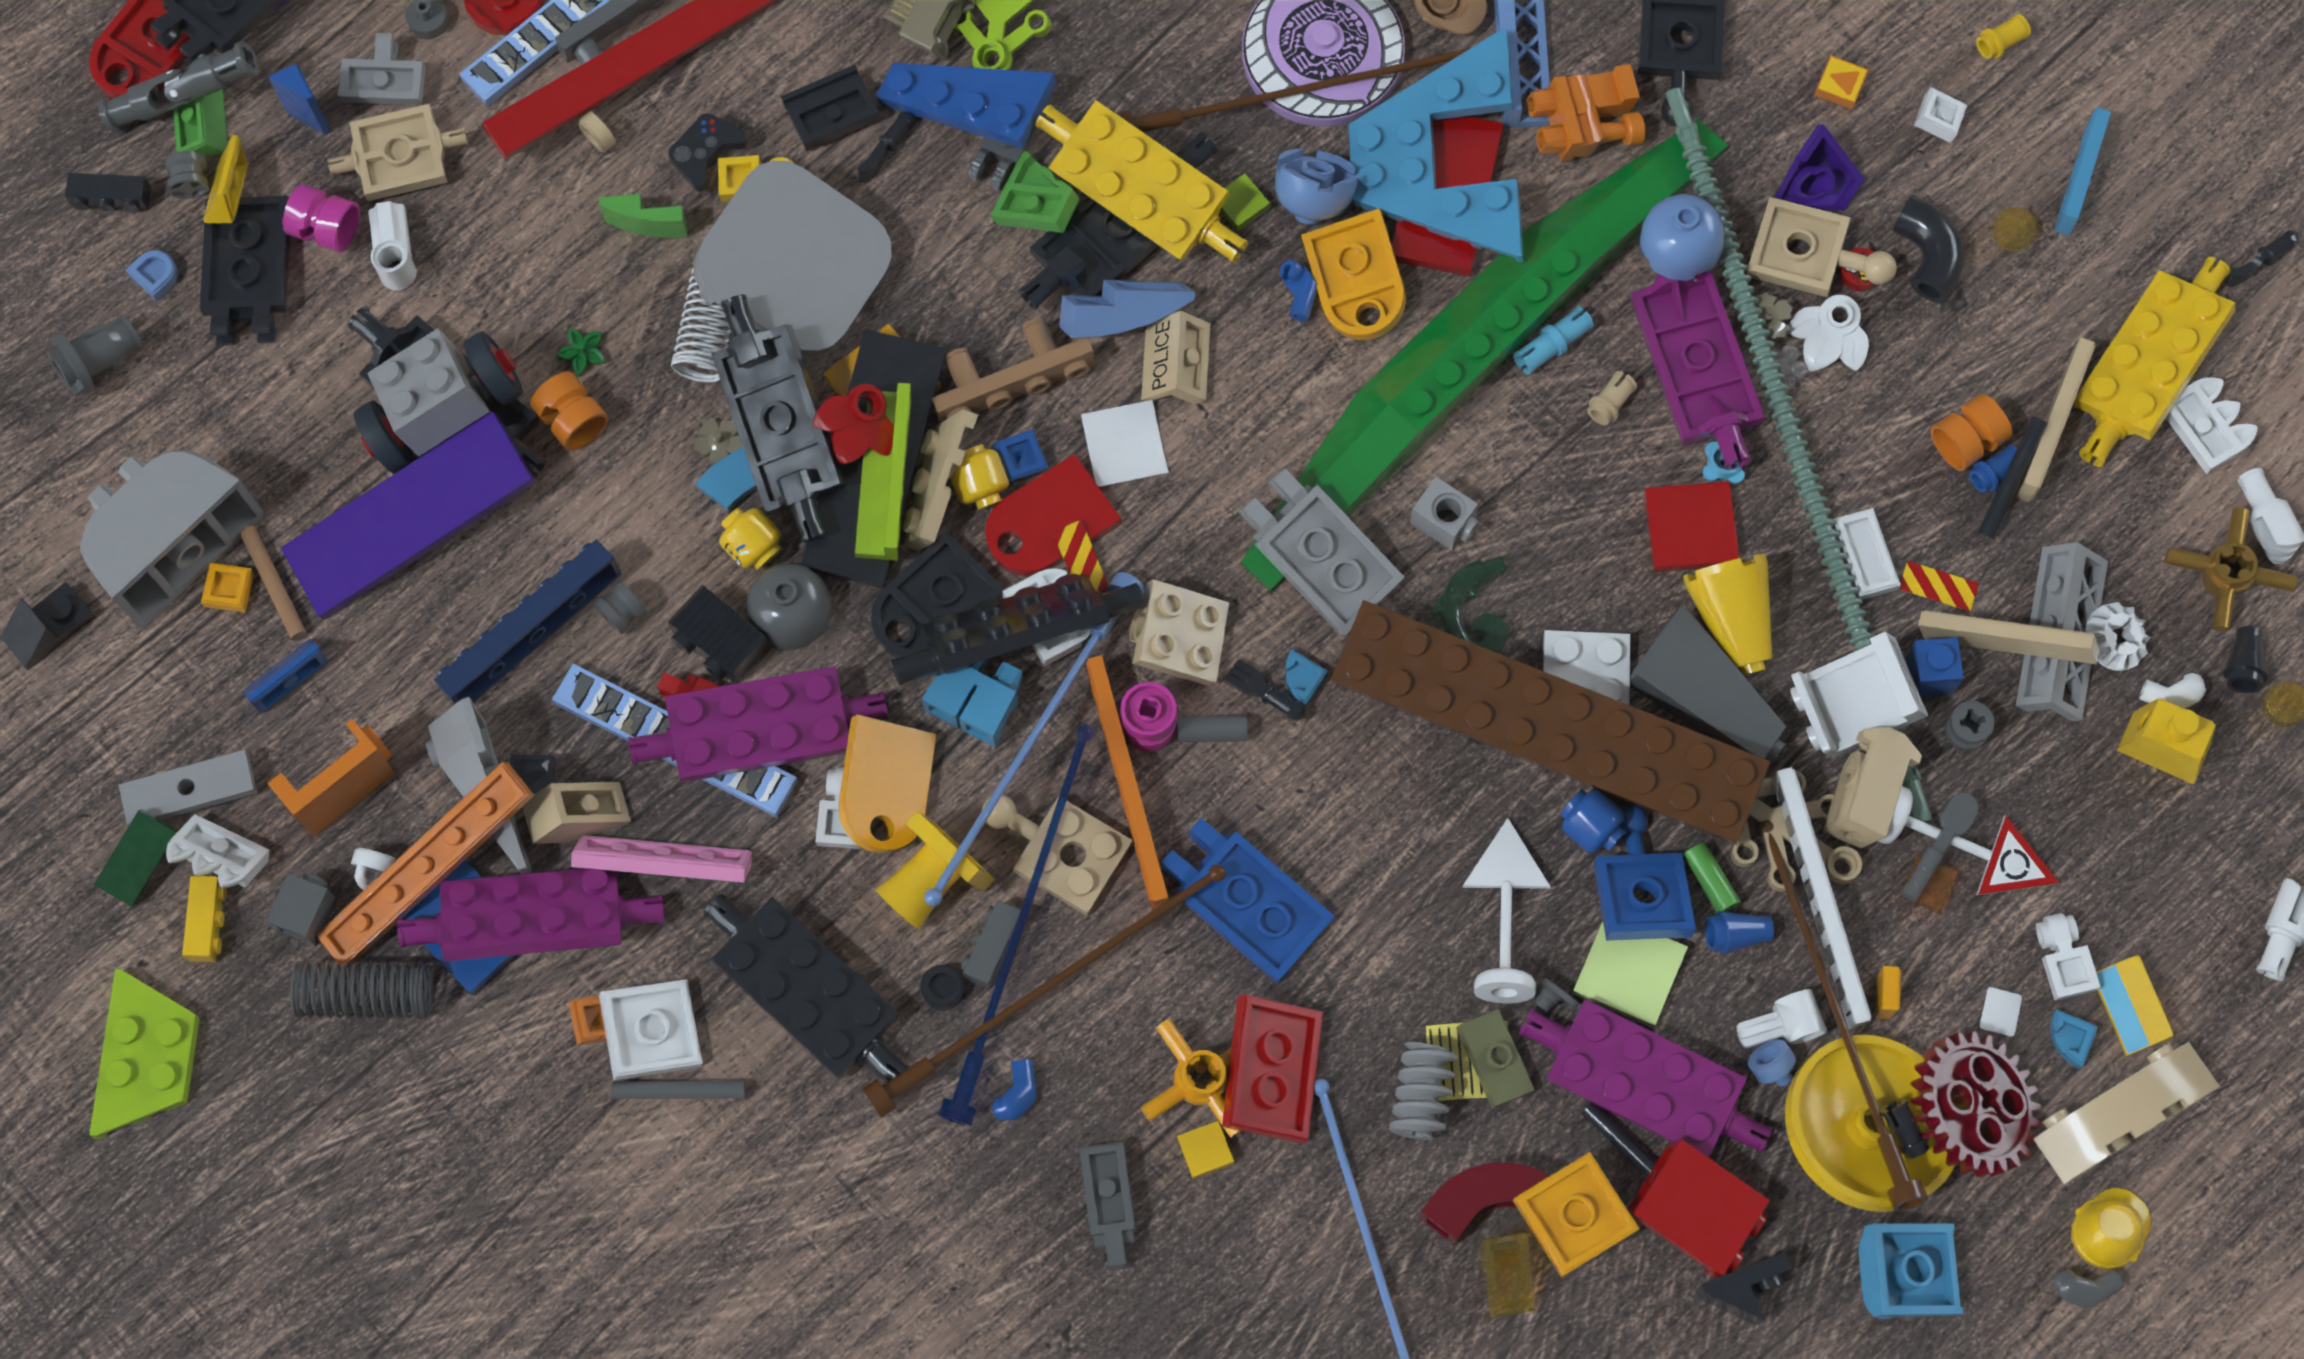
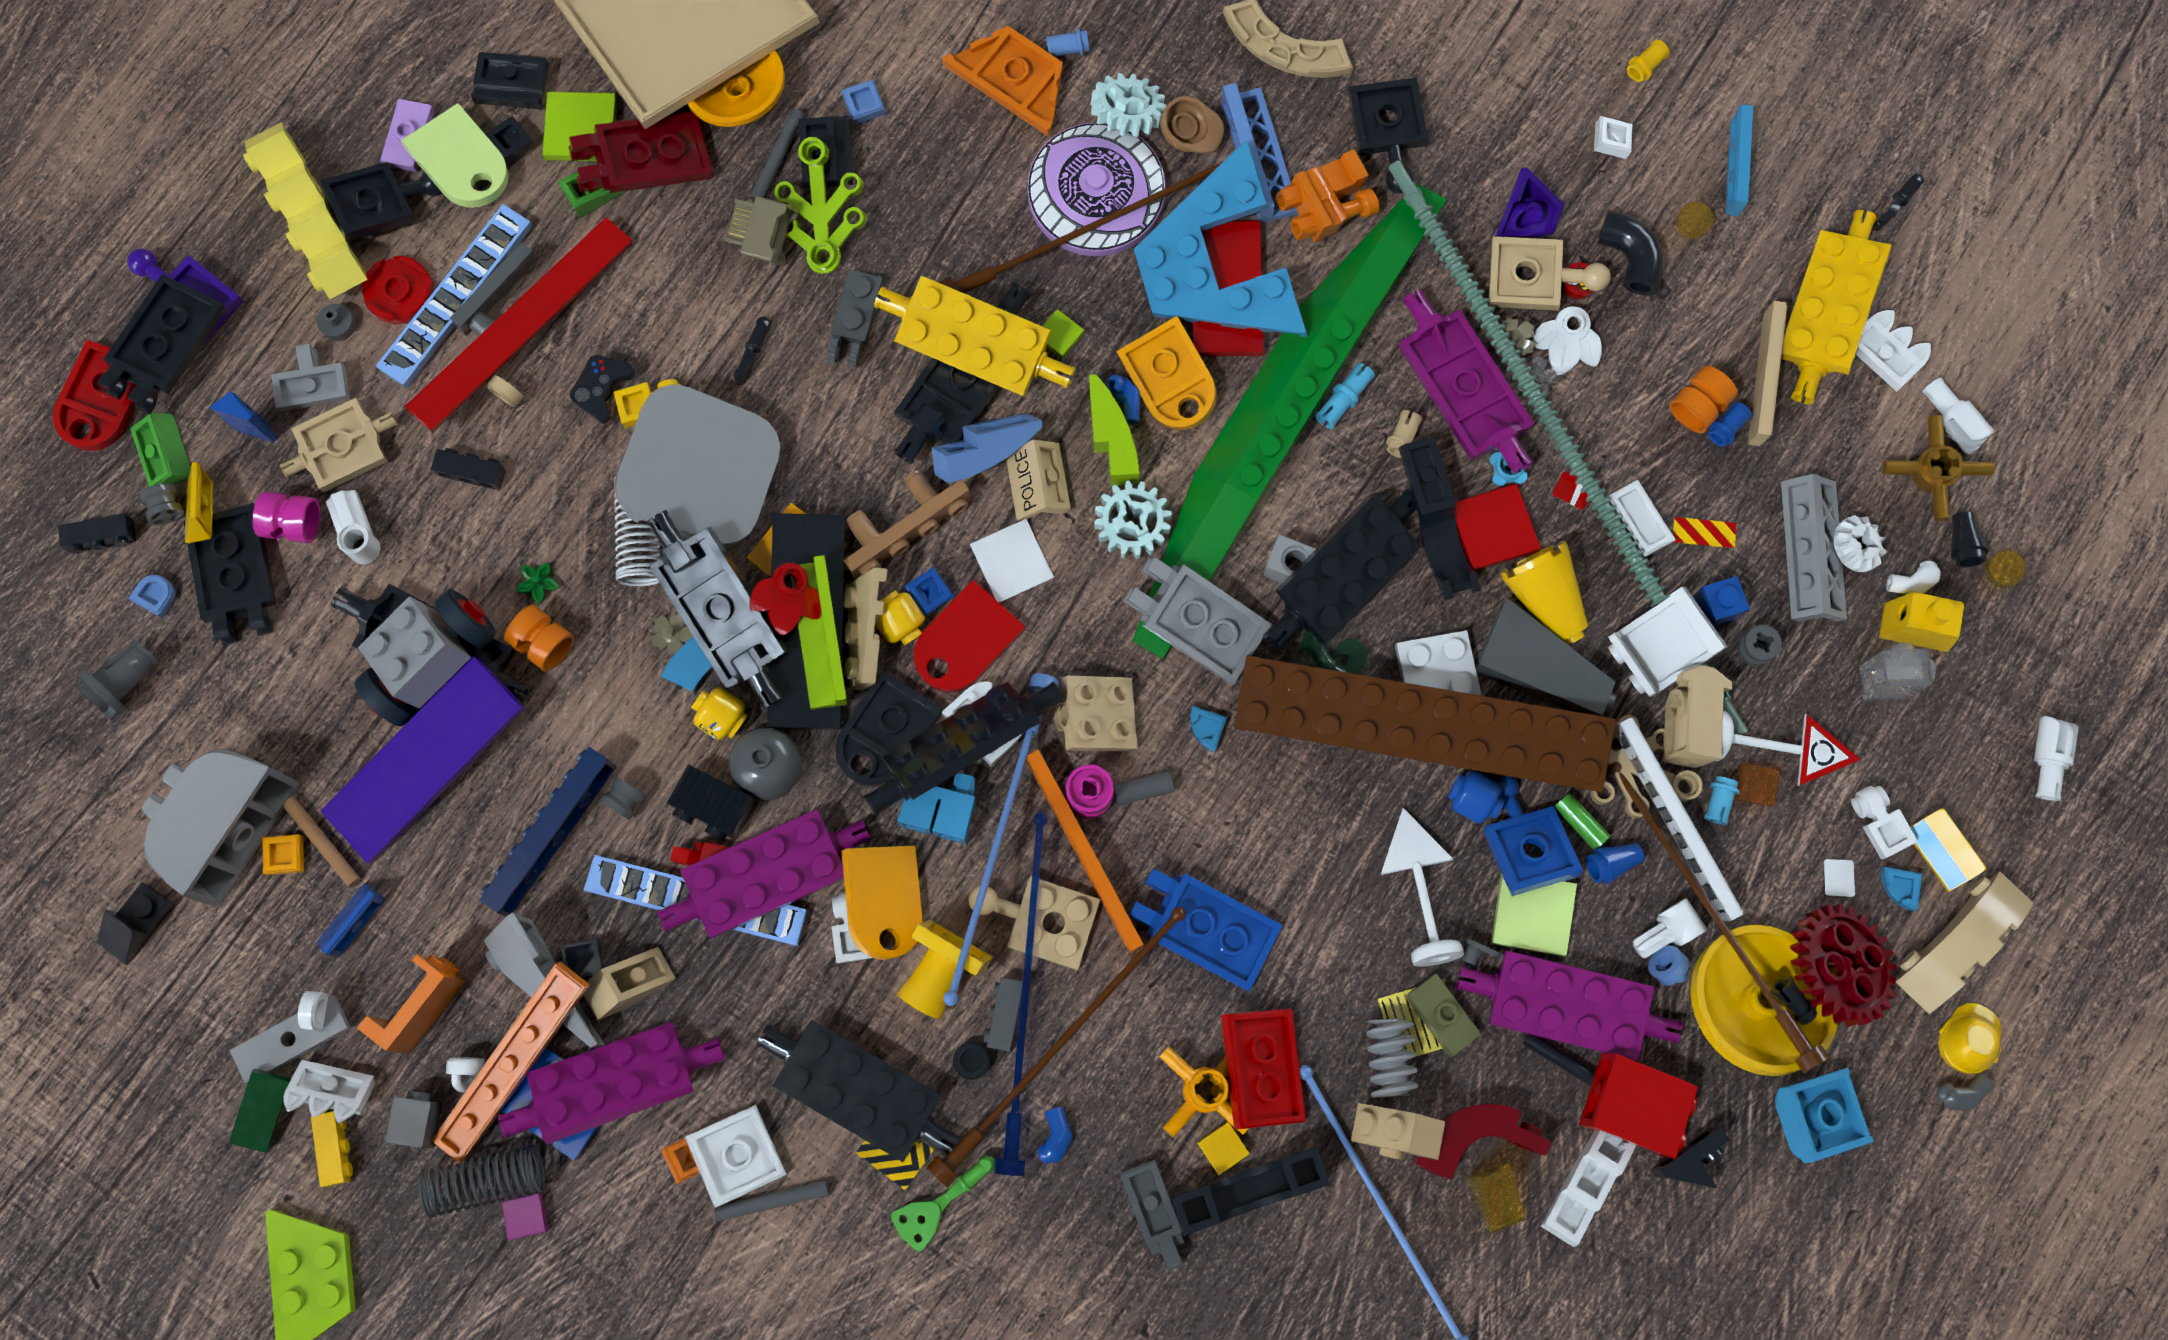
camera: 15 degrees left, 5 degrees up
(199, 79) = (151, 420): dark grey piece -> none
(221, 760) = (312, 1010): none -> white tile
(399, 1043) = (524, 1216): none -> magenta tile
(535, 209) = (468, 469): none -> black piece
(630, 215) = (552, 457): bright green slope -> none
(661, 858) = (709, 1007): bright pink tile -> none
(825, 1086) = (899, 1172): none -> sticker
(830, 107) = (697, 327): black plate -> none
(859, 1141) = (933, 1209): none -> bright green piece
(975, 100) = (816, 295): blue wing -> none
(1034, 198) = (888, 369): bright green wing -> none
(1079, 554) = (998, 665): sticker -> none
(1241, 1199) = (1250, 1190): none -> black arch
(1251, 682) = (1165, 741): black piece -> none
(1273, 327) = (1112, 434): none -> lime slope
(1288, 419) = (1144, 511): none -> light aqua gear
(1314, 186) = (1118, 307): medium blue cylinder -> none
(1408, 1169) = (1397, 1132): none -> tan brick
(1504, 533) = (1345, 570): none -> black plate
(1576, 1214) = (1544, 1137): light orange tile -> none
(1615, 1288) = (1587, 1186): none -> white slope
(1626, 498) = (1437, 517): none -> black piece
(1682, 237) = (1433, 287): medium blue cylinder -> none
(1790, 505) = (1569, 491): none -> red sticker
(1841, 82) = (1526, 127): tile -> none
(1881, 890) = (1721, 800): none -> medium azure pin
(1887, 992) = (1748, 885): light orange tile -> none
(1955, 820) = (1768, 728): dark grey piece -> none
(2011, 637) = (1778, 566): tan tile -> none
(2012, 477) = (1745, 429): black bar -> none
(2120, 789) = (1897, 673): none -> clear brick

